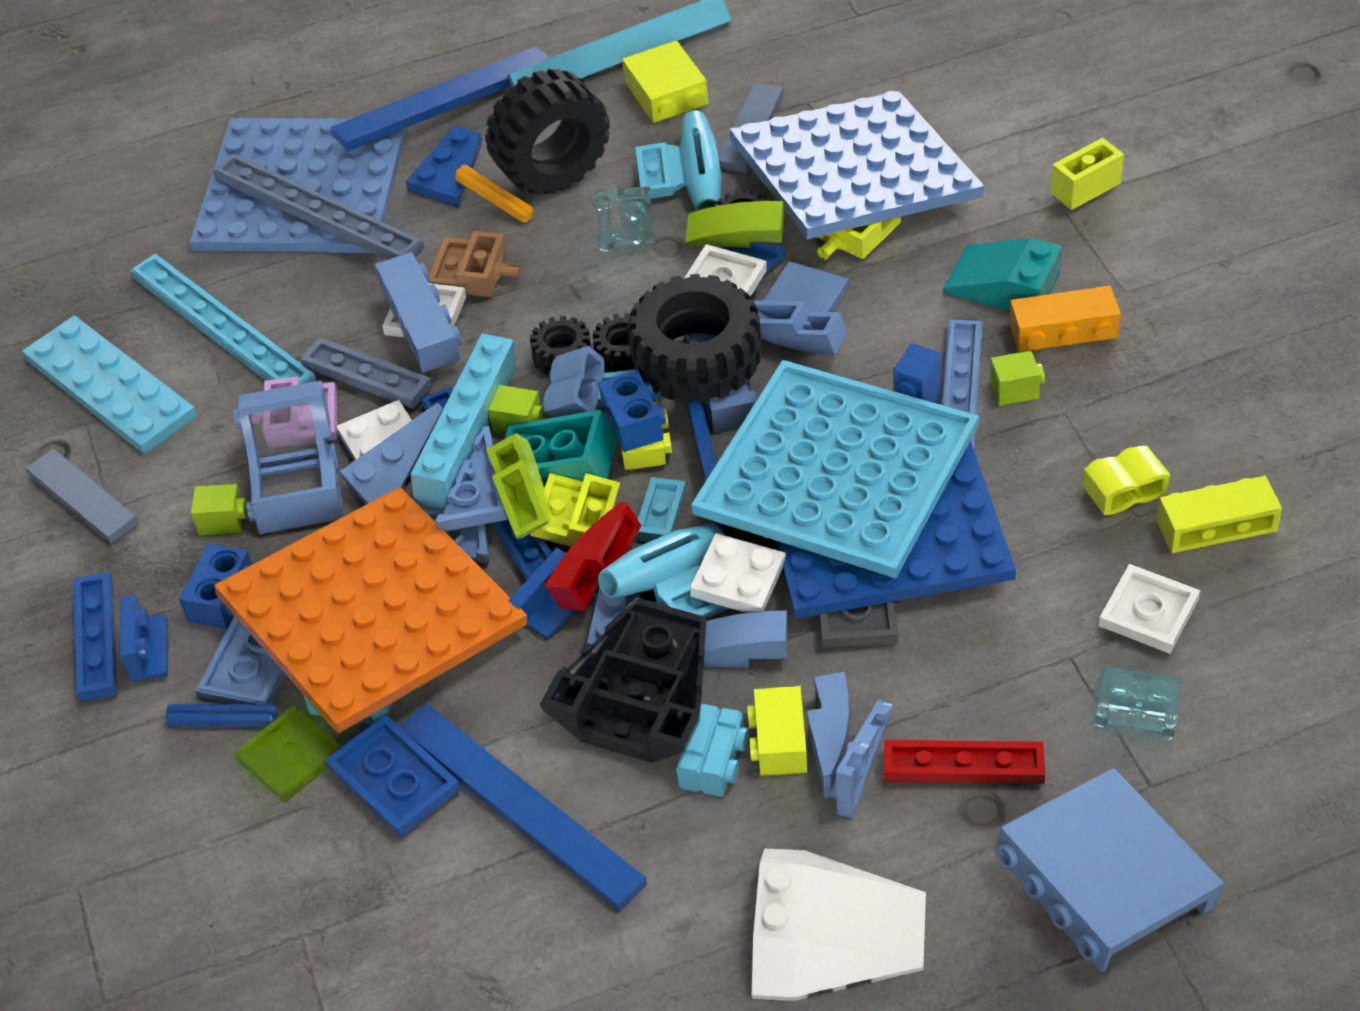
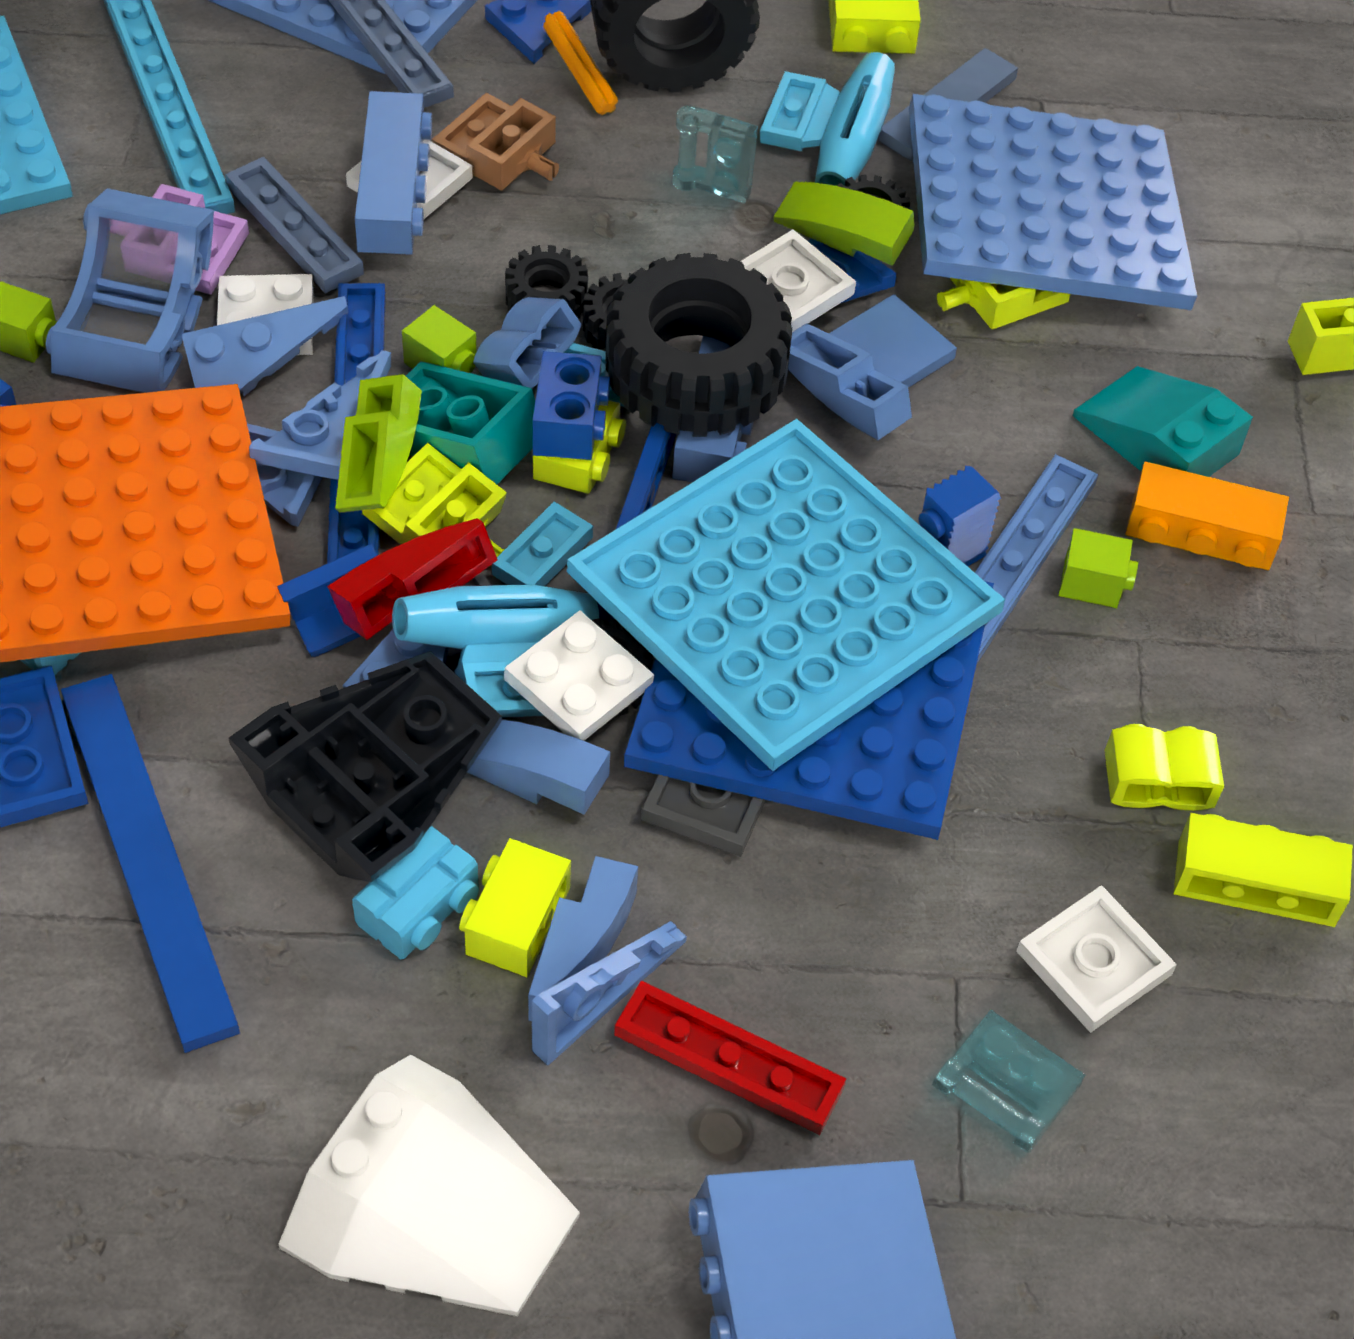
camera: 15 degrees right, 5 degrees up
(462, 420) = (371, 321): medium azure brick -> none

